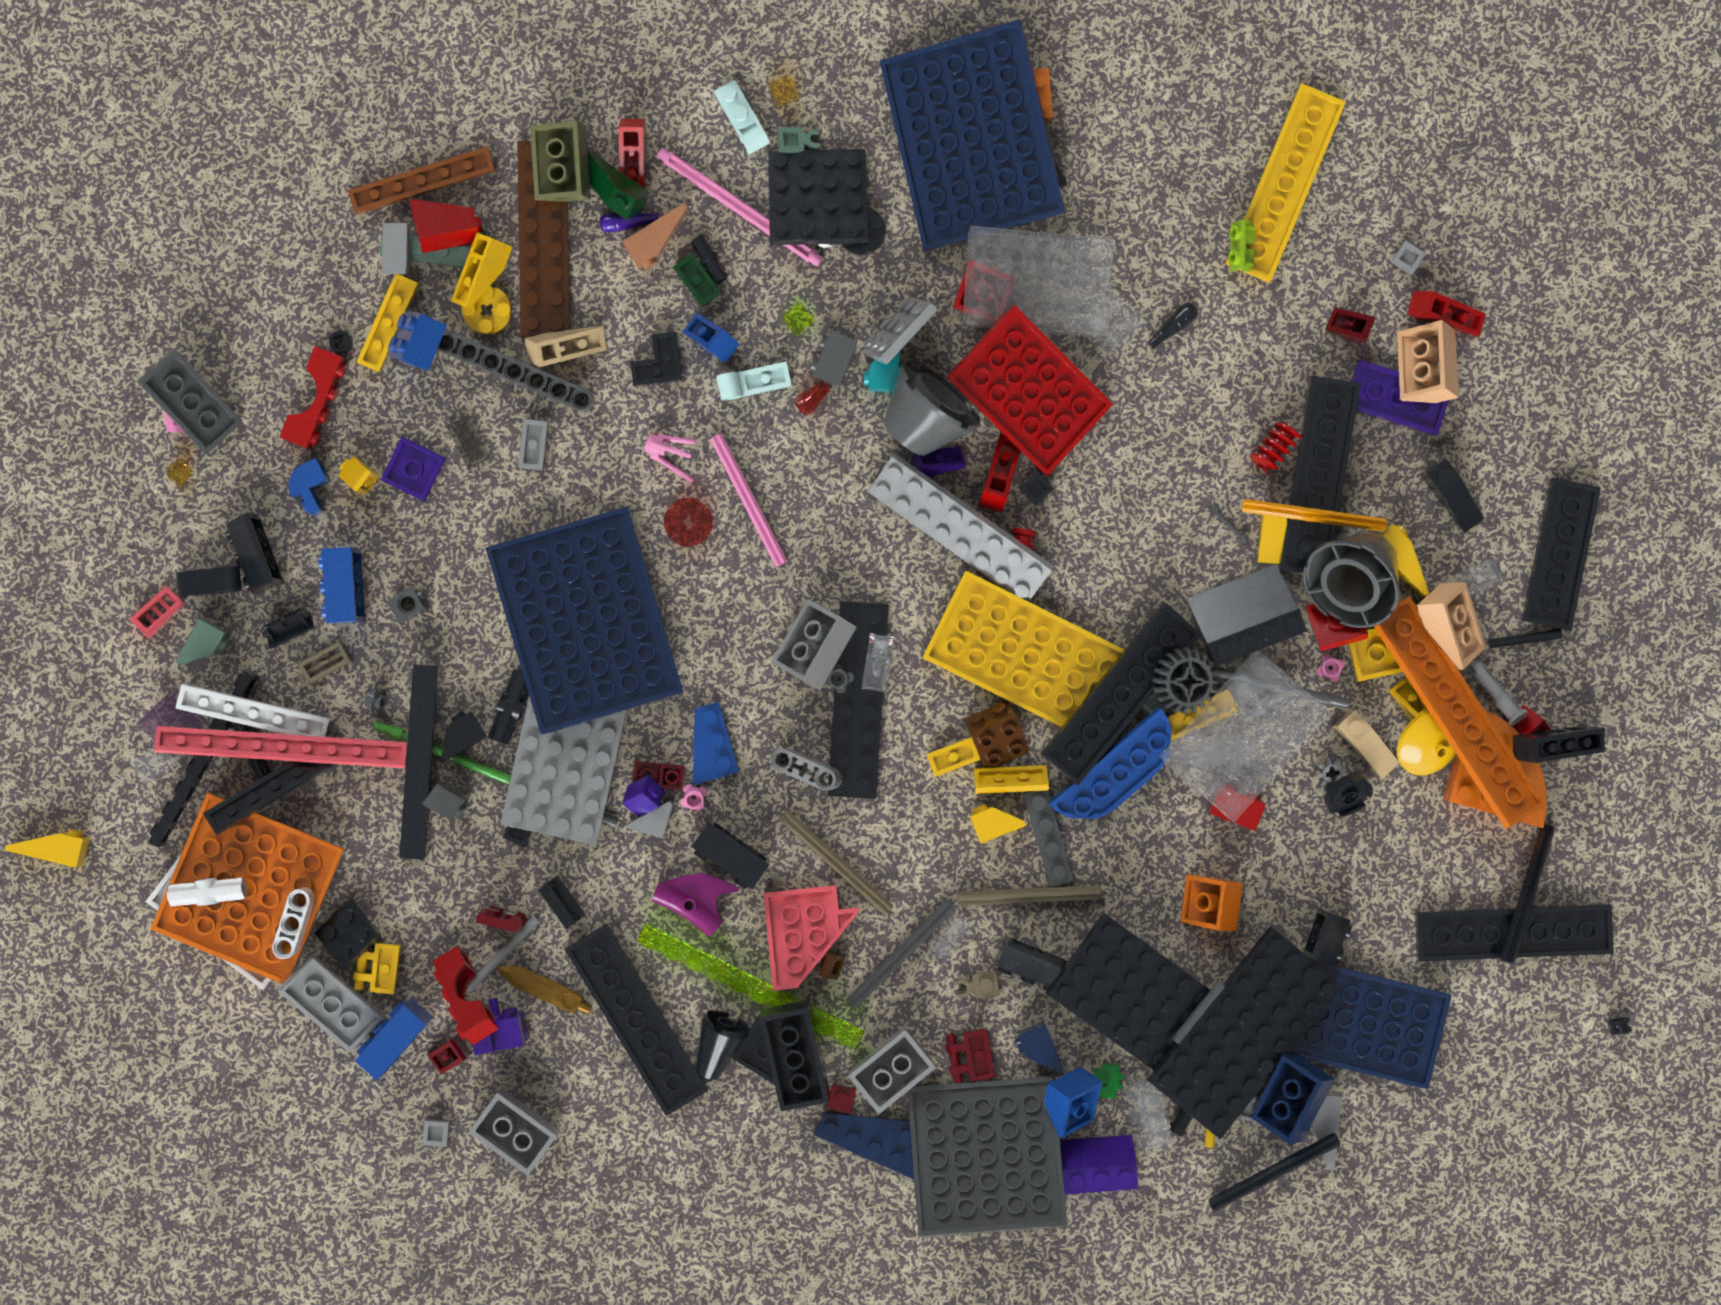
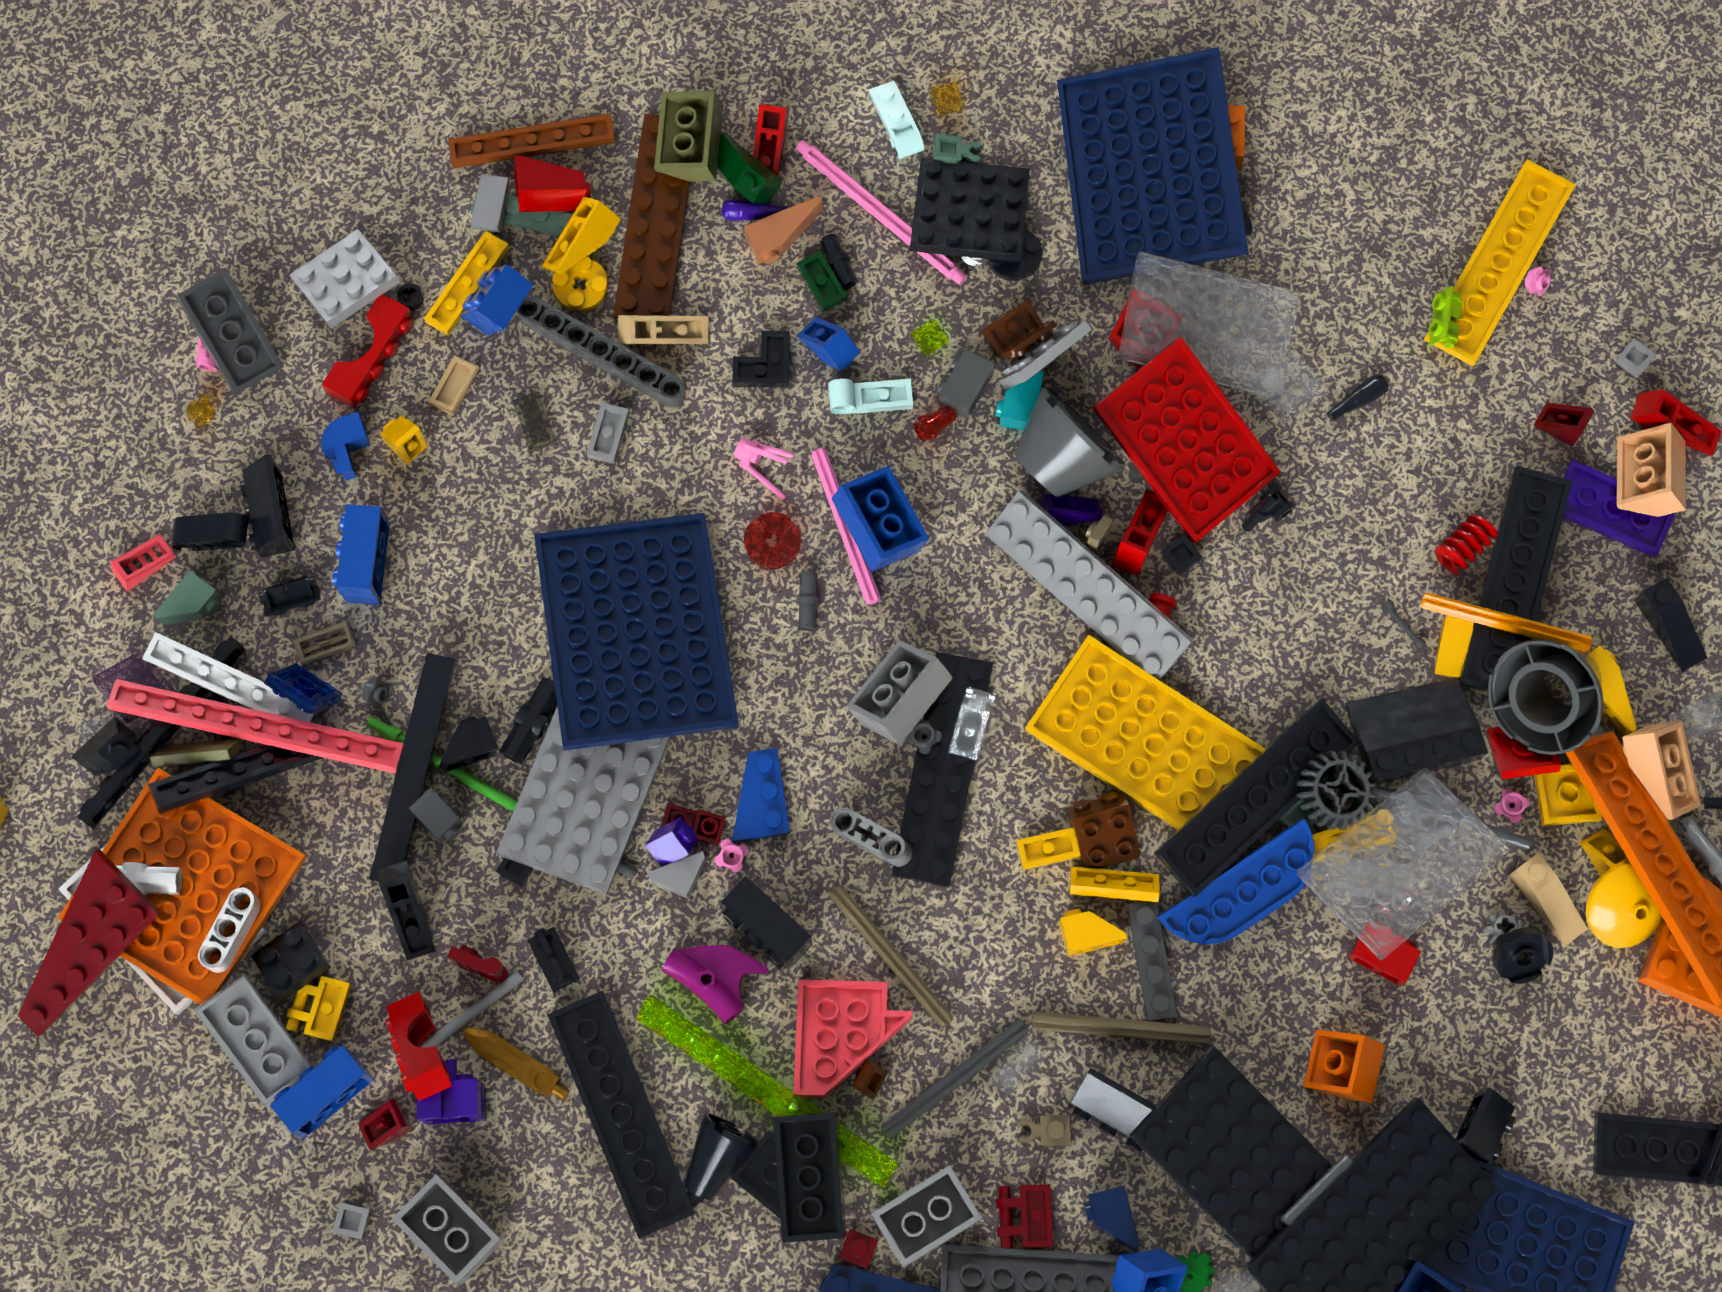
camera: 10 degrees right, 15 degrees down
(162, 779) = (108, 748): none -> black slope
(183, 939) = (93, 934): none -> dark red wing
(236, 774) = (196, 752): none -> olive tile
(280, 335) = (344, 278): none -> light grey plate
(314, 708) = (302, 688): none -> clear blue plate
(393, 418) = (453, 385): none -> tan tile
(397, 604) = (422, 584): dark grey brick -> none
(413, 469) = (466, 443): dark purple tile -> none
(433, 880) = (406, 910): none -> black slope
(725, 571) = (807, 601): none -> dark grey pin
(777, 494) = (880, 518): none -> blue brick
(873, 307) = (1016, 330): none -> reddish brown bracket
(963, 483) = (1097, 533): none -> dark tan plate
(1109, 434) = (1271, 504): none -> black piece
(1319, 197) = (1538, 280): none -> bright pink plate

